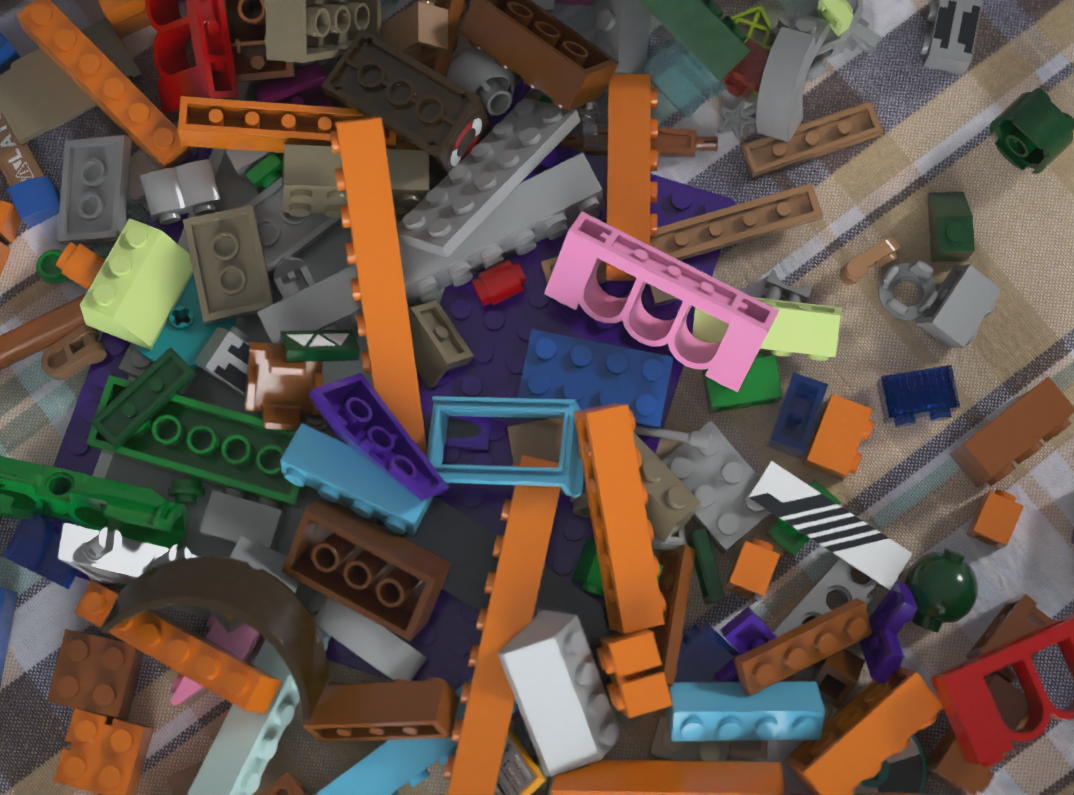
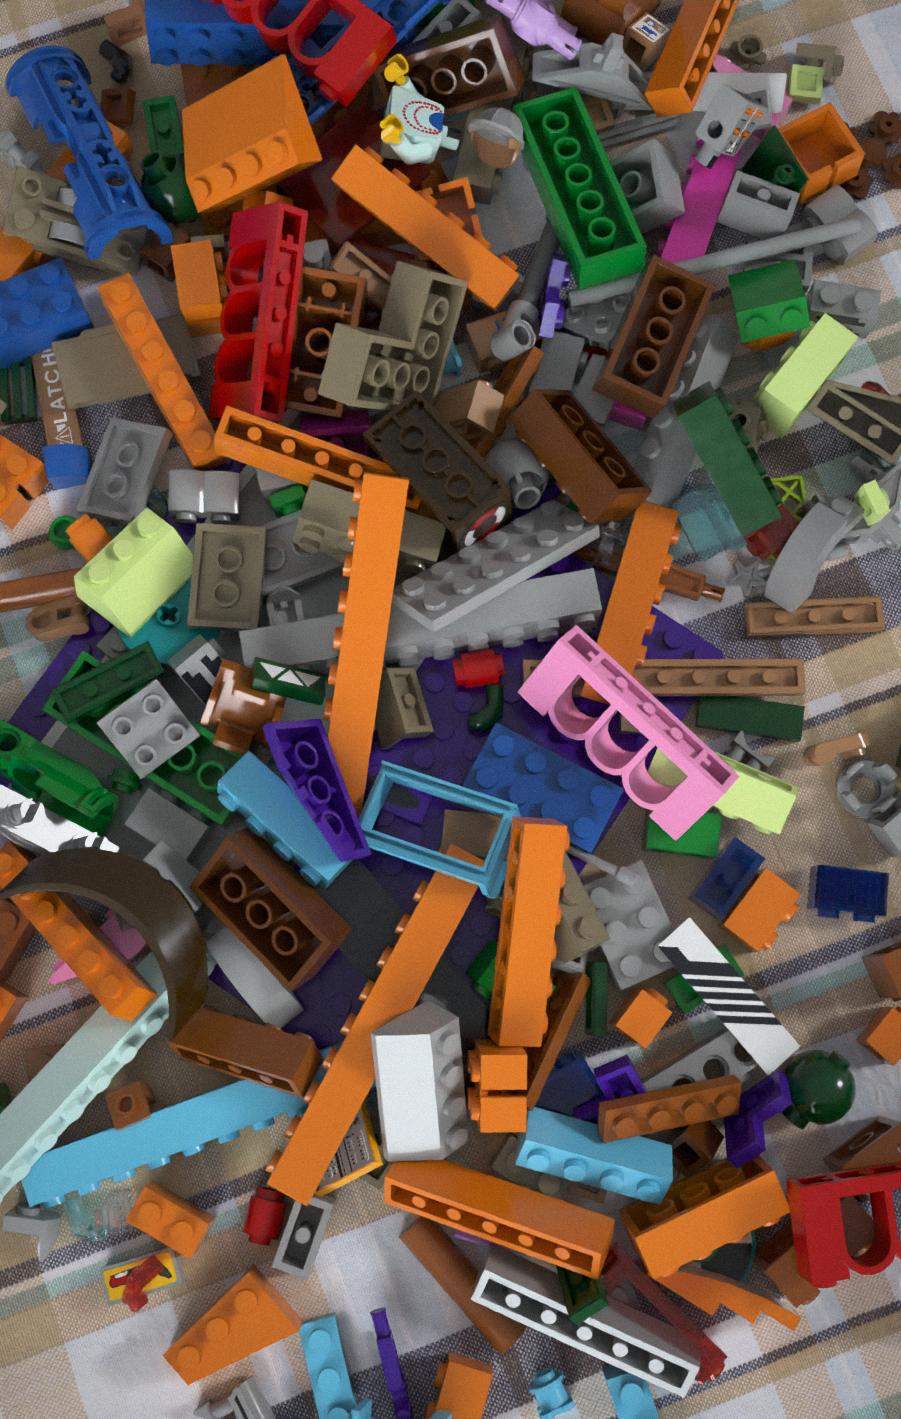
camera: 10 degrees right, 0 degrees up
(196, 431) = (148, 728): none -> light grey hinge
(524, 321) = (490, 713): none -> dark green arm
(778, 253) = (751, 716): none -> dark green tile

